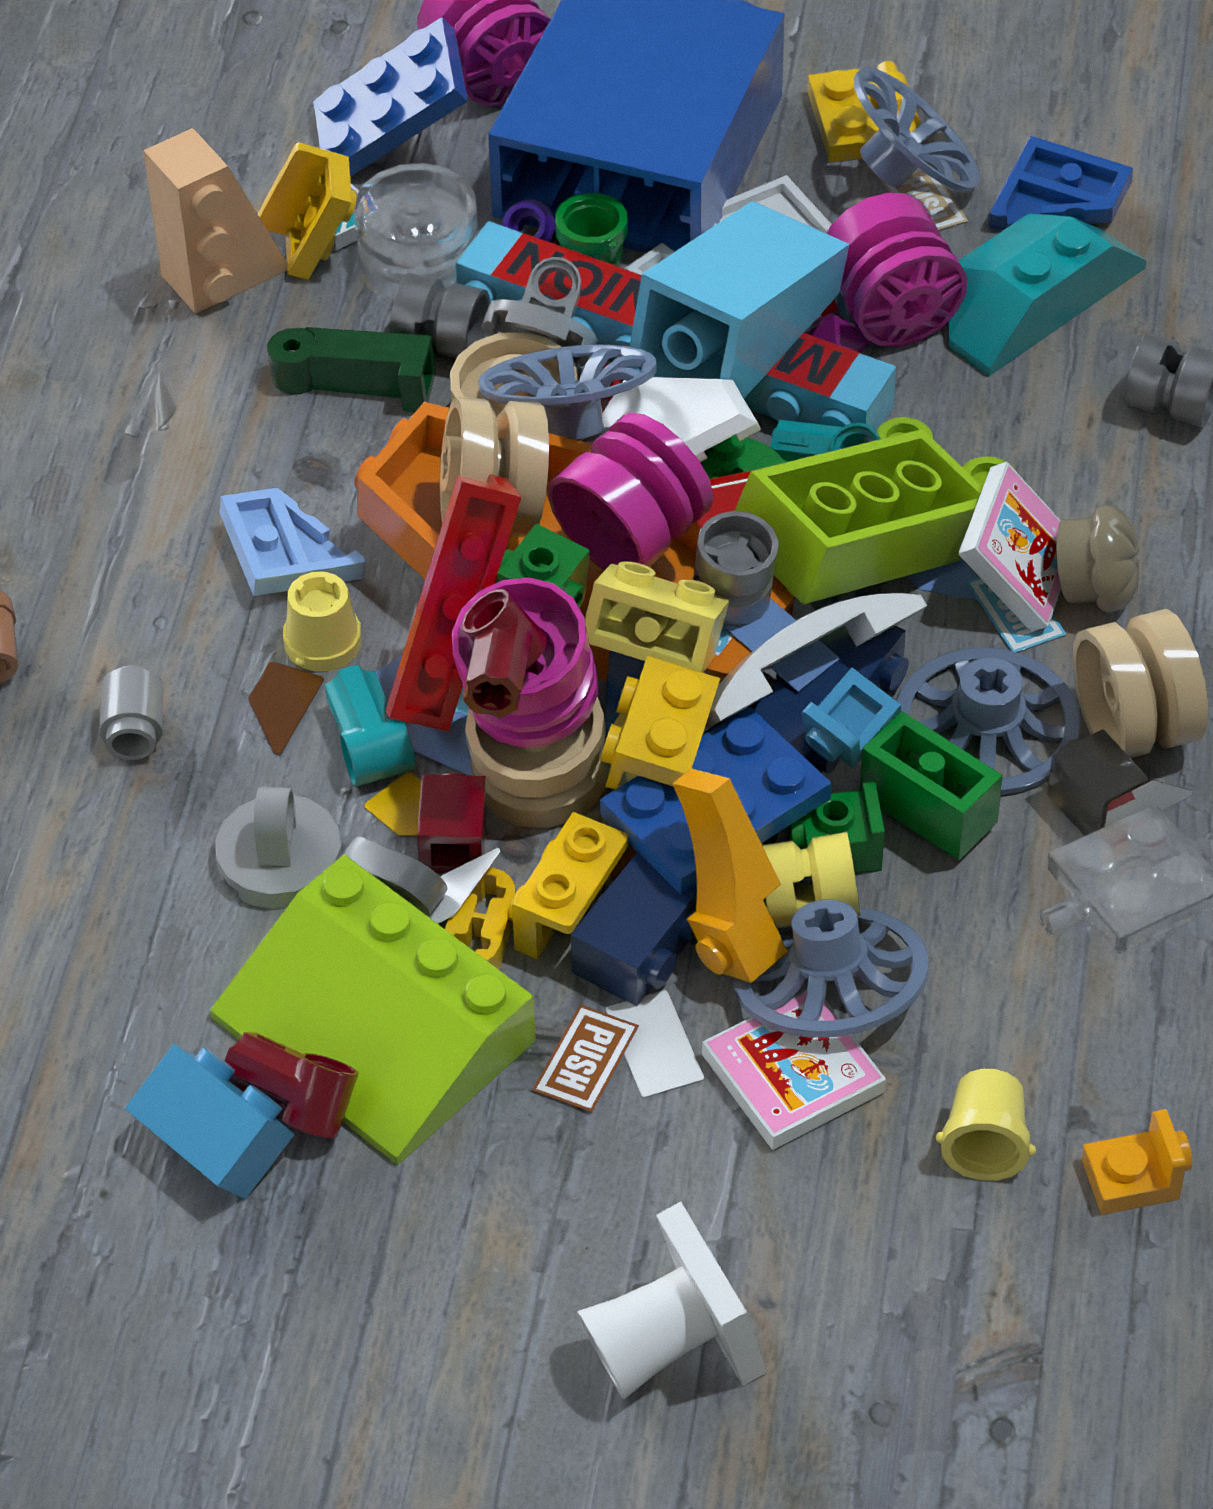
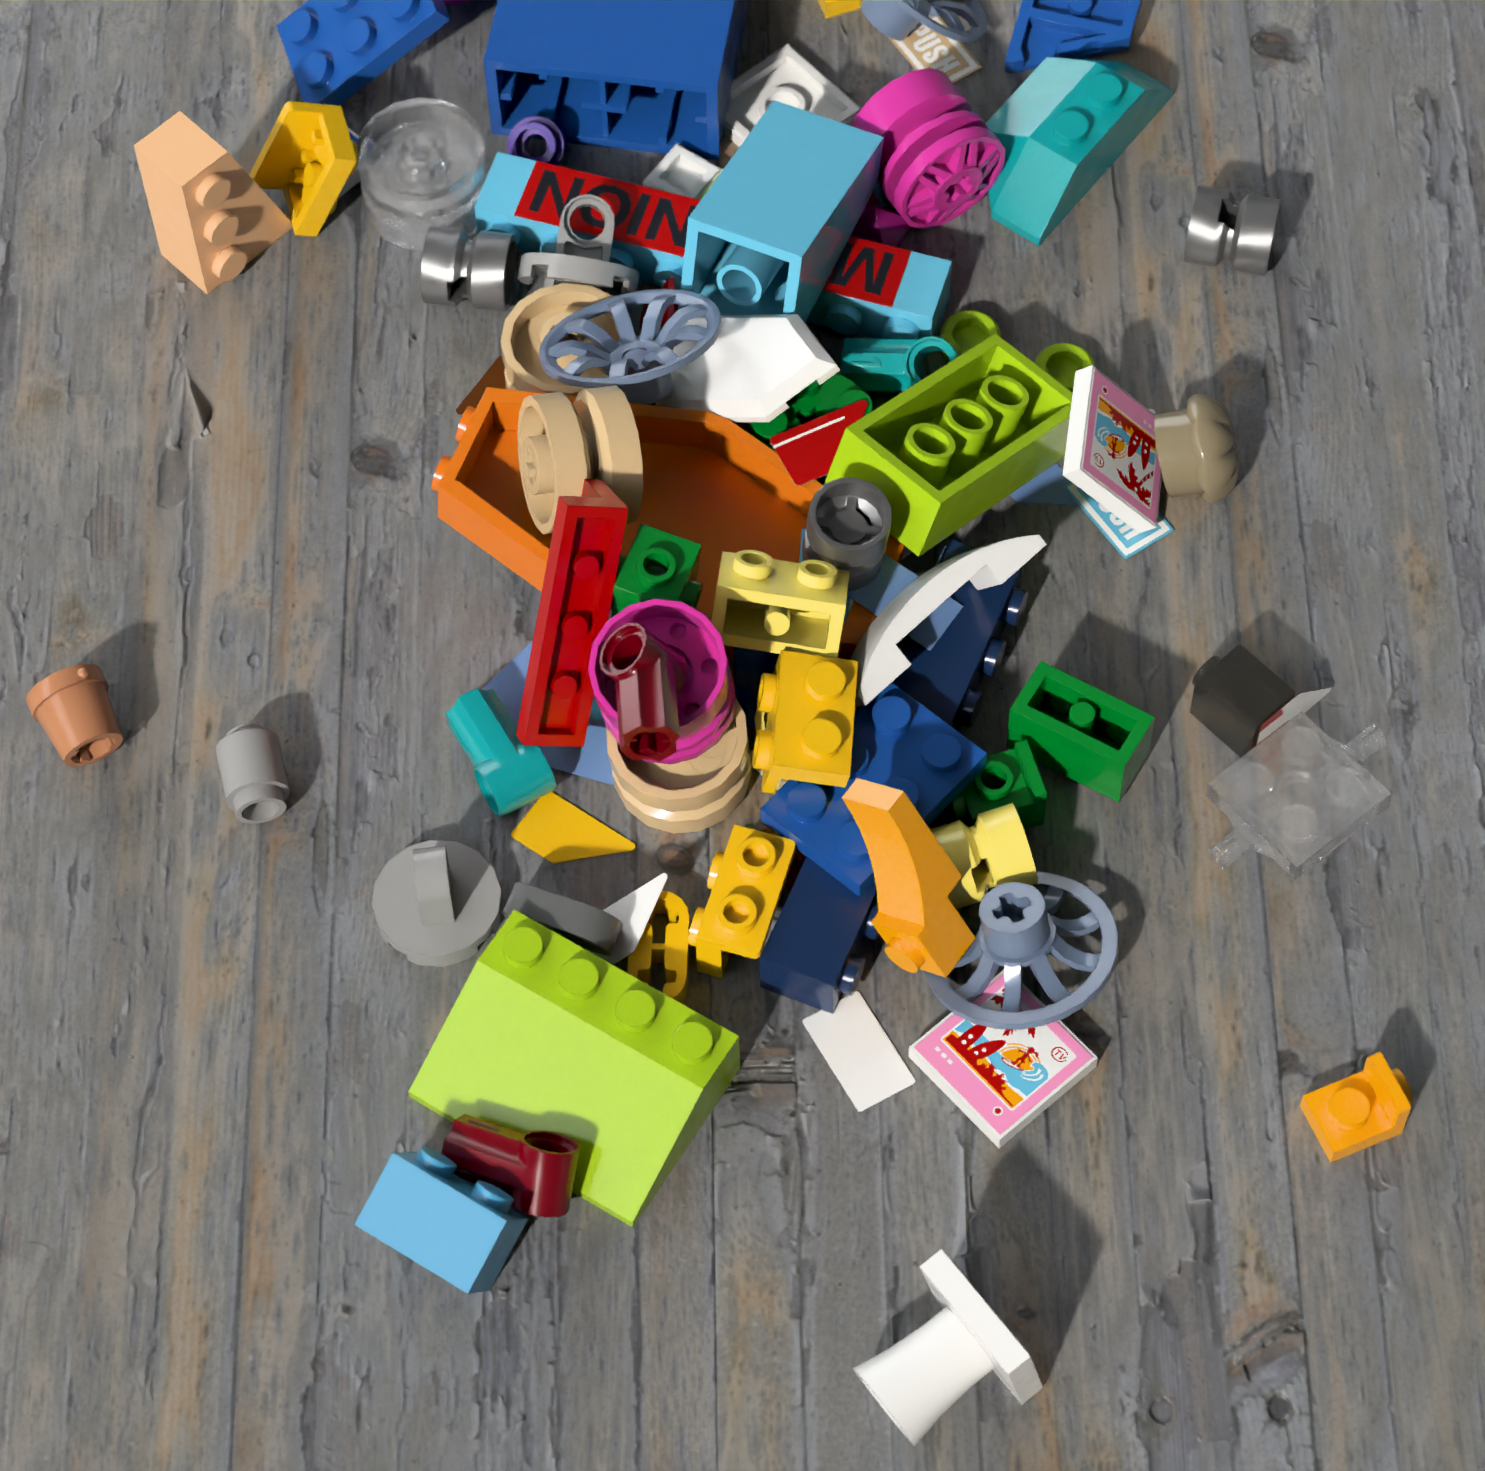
camera: 10 degrees left, 10 degrees up
(281, 542) = (364, 556): light blue wing -> none
(282, 700) = (400, 730): reddish brown sticker -> none
(321, 623) = (424, 642): light yellow piece -> none
(353, 363) = (389, 334): dark green leg -> none
(451, 820) = (608, 846): dark red brick -> none
(585, 1058) = (794, 1079): sticker -> none
(593, 226) = (606, 142): green piece -> none
(631, 493) = (727, 471): dark pink wheel -> none
(848, 718) = (990, 678): dark azure bracket -> none
(987, 1127) = (1207, 1094): light yellow piece -> none
(993, 706) = (1119, 629): sand blue wheel -> none
(1141, 682) = (1268, 588): tan wheel -> none

